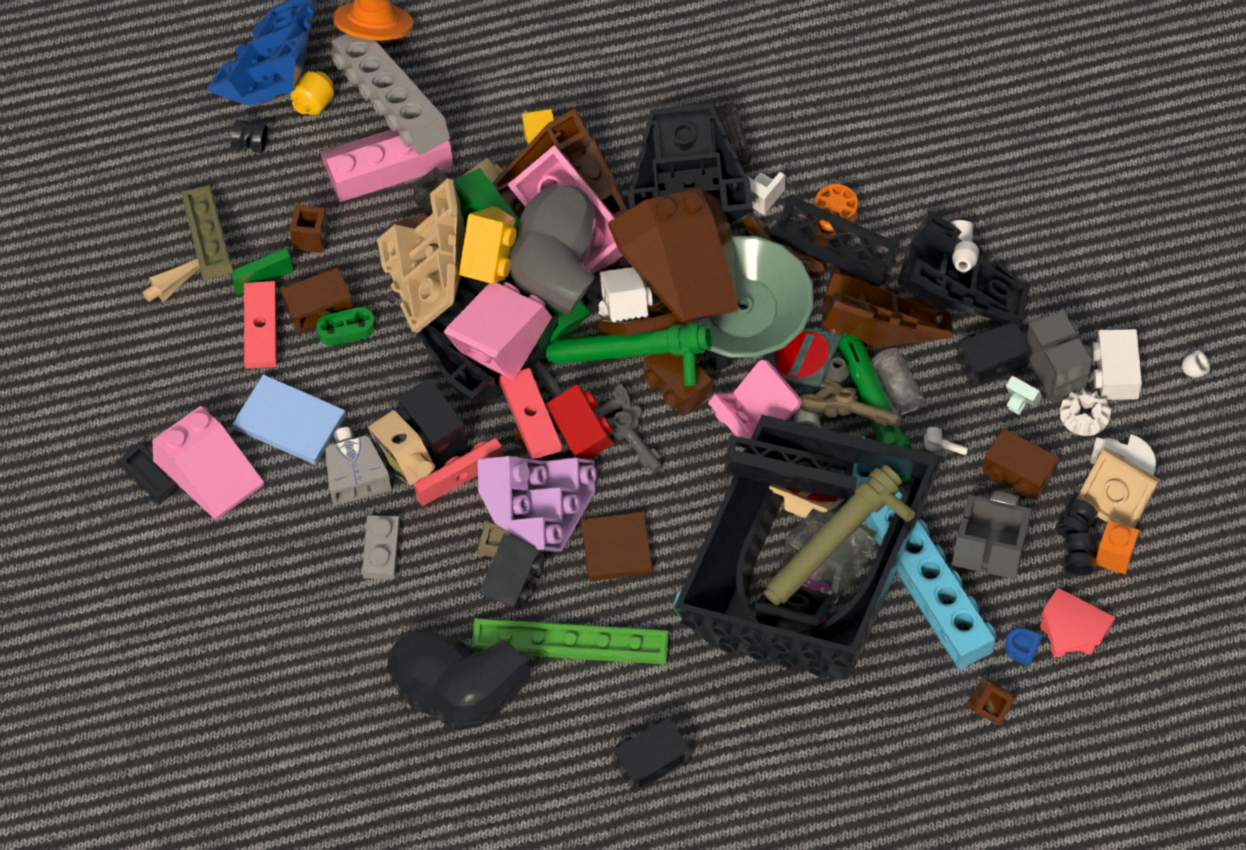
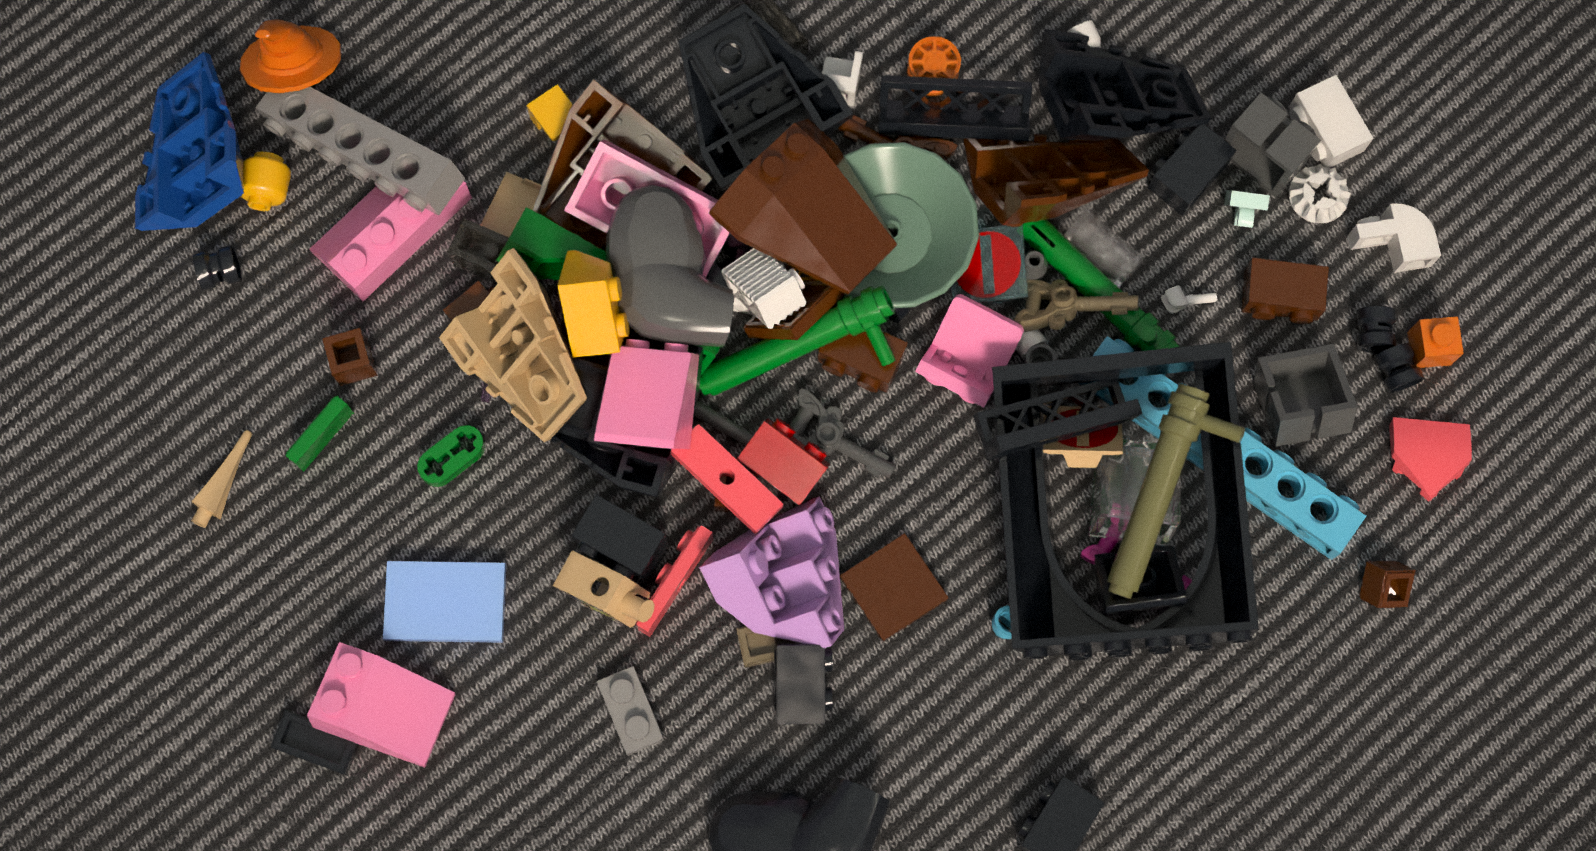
camera: 30 degrees left, 15 degrees up
(206, 232) = (230, 414): olive tile -> none
(260, 310) = (342, 480): coral tile -> none
(315, 297) = (401, 439): reddish brown brick -> none
(354, 468) = (552, 630): light grey torso -> none
(574, 640) = (899, 726): bright green tile -> none
(965, 256) = (1113, 68): white hose -> none
(1005, 497) = (1291, 339): white sticker -> none
(1022, 645) = (1387, 501): blue tile -> none
(1118, 489) = (1408, 276): tan tile -> none
(1196, 364) = (1409, 85): white hinge -> none

